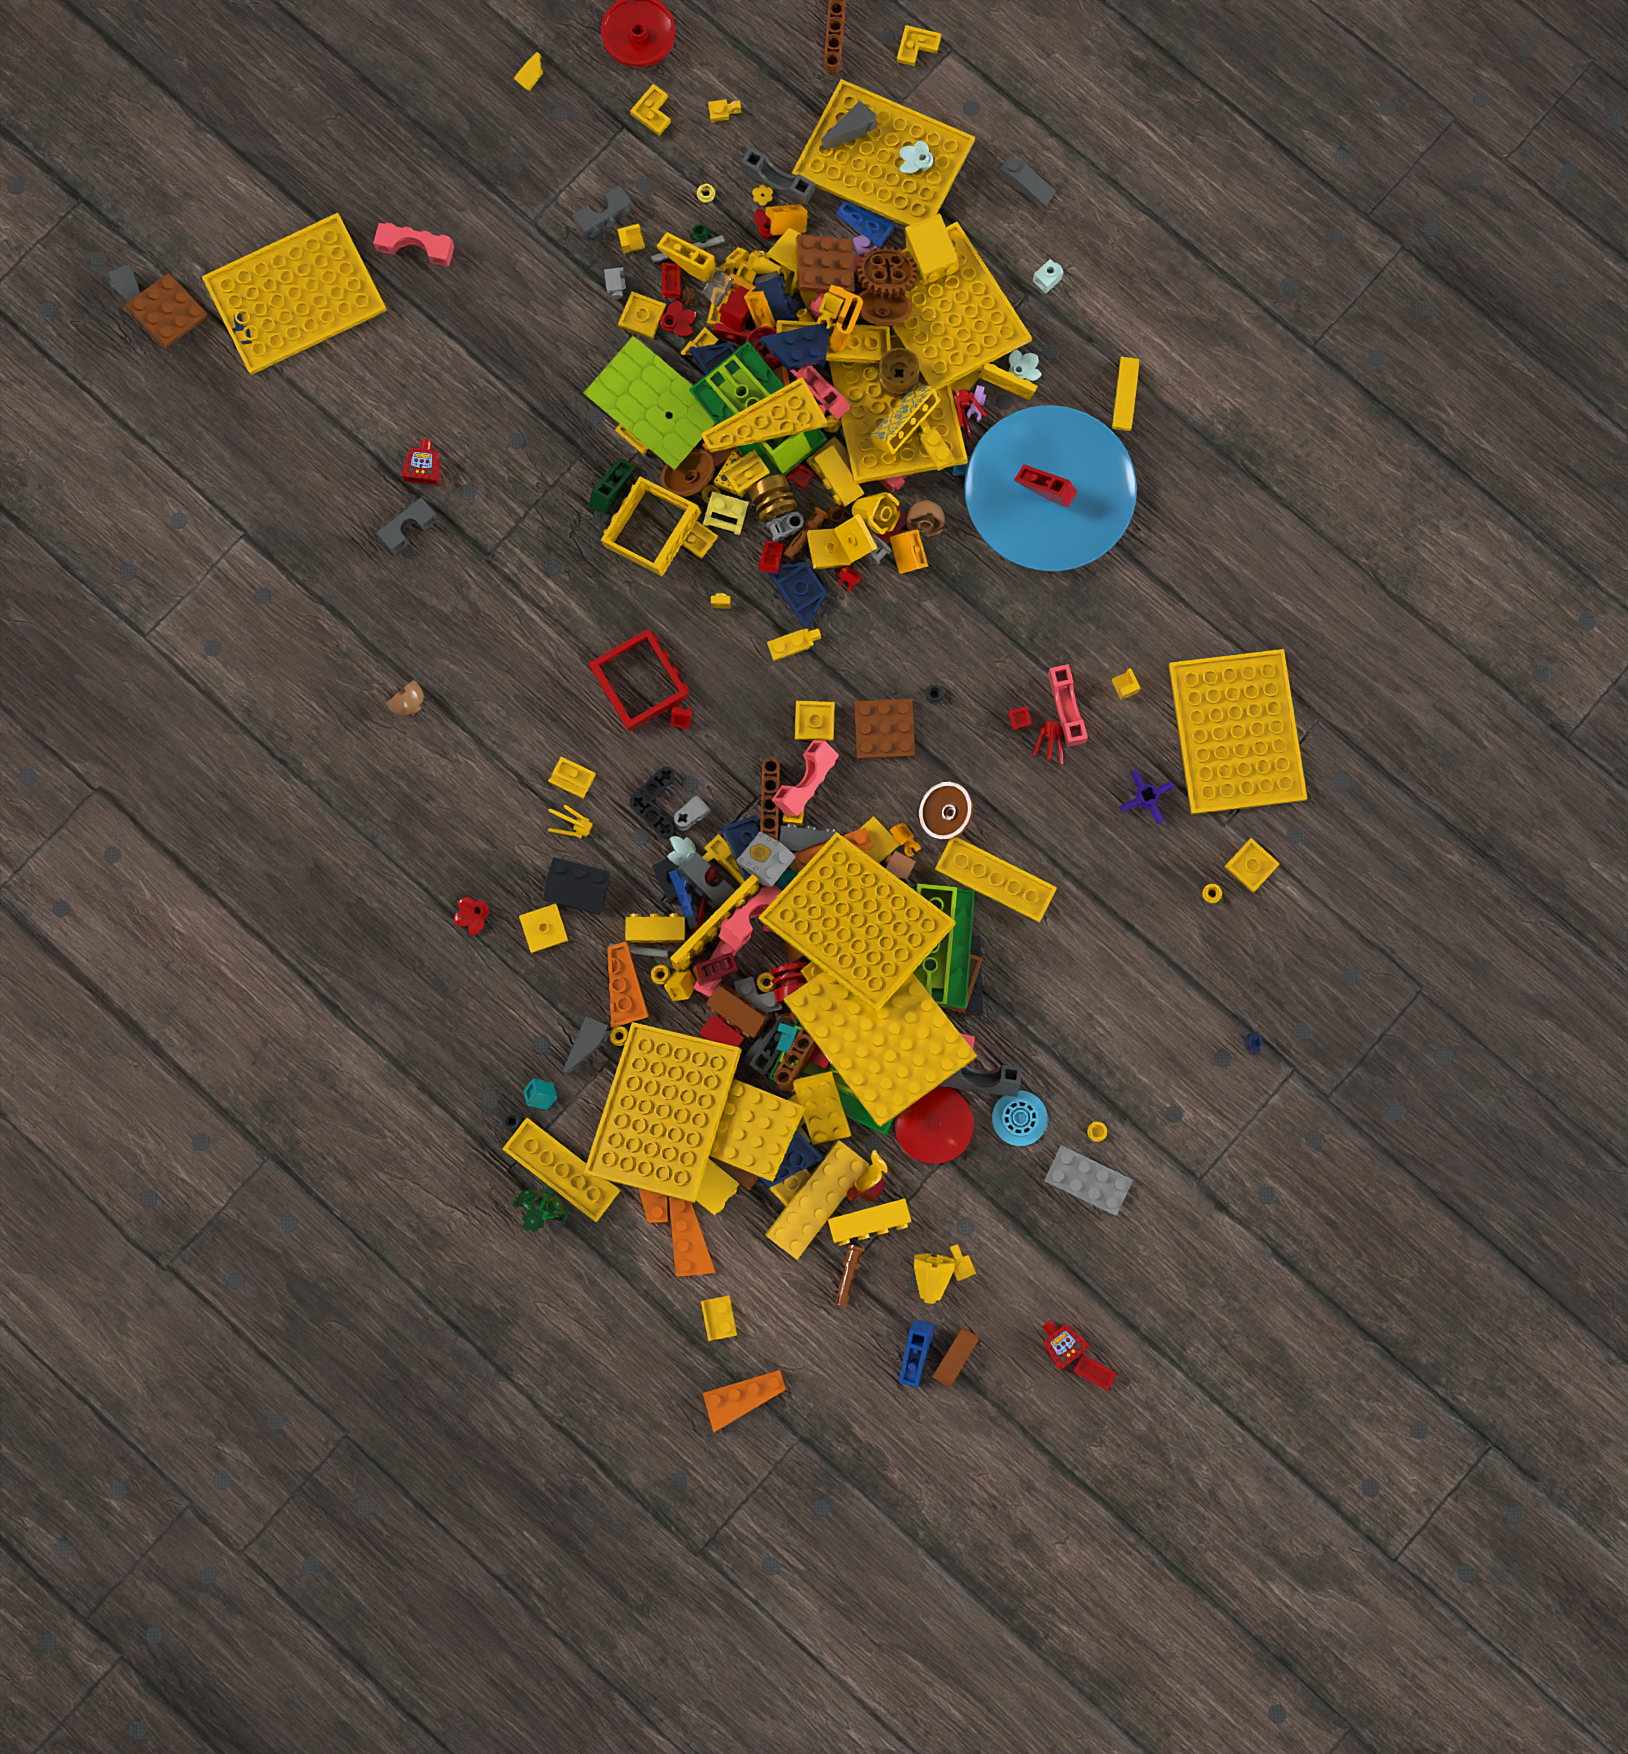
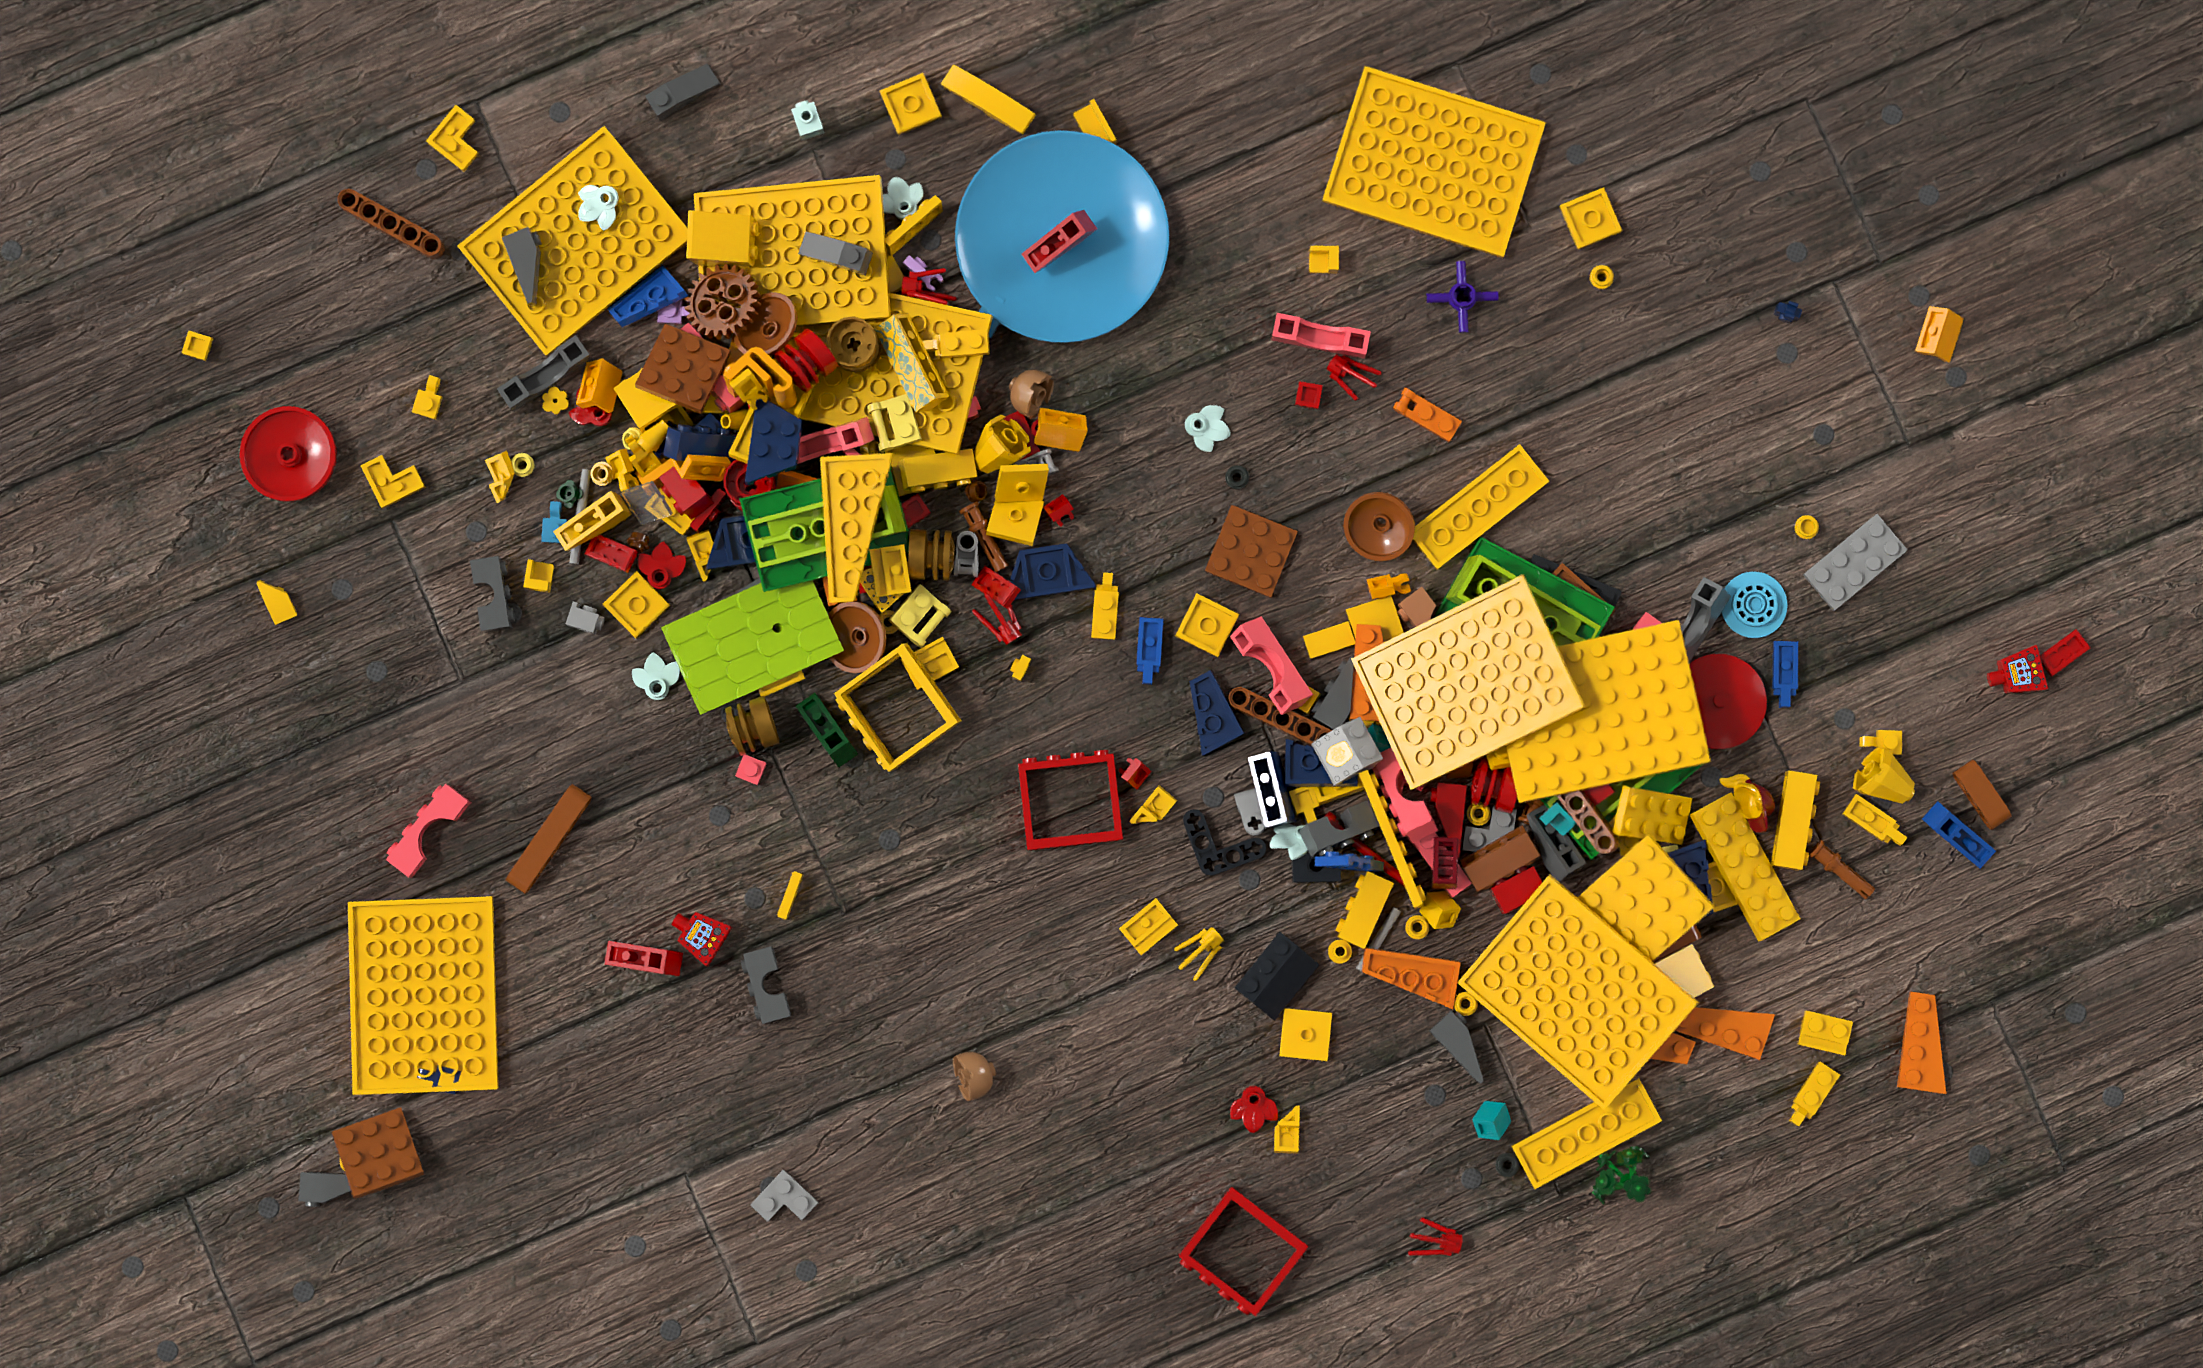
camera: 65 degrees left, 5 degrees up
(263, 608) = (782, 1191): none -> light grey plate
(388, 432) = (643, 958): none -> red slope
(391, 962) = (1225, 1290): none -> red window
(434, 1103) = (1449, 1242): none -> red plant
(445, 329) = (548, 838): none -> dark orange beam
(464, 948) = (1287, 1133): none -> yellow slope
(479, 513) = (790, 895): none -> yellow tile
(559, 446) = (750, 769): none -> coral plate
(590, 430) = (752, 725): none -> pearl gold wheel
(598, 349) = (656, 673): none -> light aqua plate
(618, 931) = (1339, 959): none -> yellow plate
(663, 744) = (1154, 807): none -> yellow slope
(669, 1329) = (1813, 1093): none -> yellow hinge
(683, 230) = (552, 523): none -> dark azure plate
(693, 182) = (502, 473): none -> yellow slope
(710, 821) = (1271, 789): none -> dark blue brick
(725, 249) = (596, 473): none -> yellow plate
(743, 580) = (1008, 631): none -> red plant
(749, 757) = (1214, 715): none -> dark blue wing
(759, 958) = (1449, 808): none -> red slope
(778, 686) = (1149, 647): none -> blue hinge
(845, 814) = (1329, 640): none -> yellow tile
(858, 434) = (902, 421): none -> light yellow plate
(870, 342) = (809, 358): none -> red wheel
(897, 1282) = (1873, 820): none -> yellow hinge
(960, 333) = (836, 253): none -> slope
(961, 659) = (1211, 427): none -> light aqua plate
(980, 1163) = (1785, 671): none -> blue hinge
(1046, 812) = (1427, 415): none -> orange plate
(1095, 342) = (910, 104): none -> yellow plate
(1145, 475) = (1093, 122): none -> yellow panel
(1293, 1167) = (1939, 333): none -> light orange panel

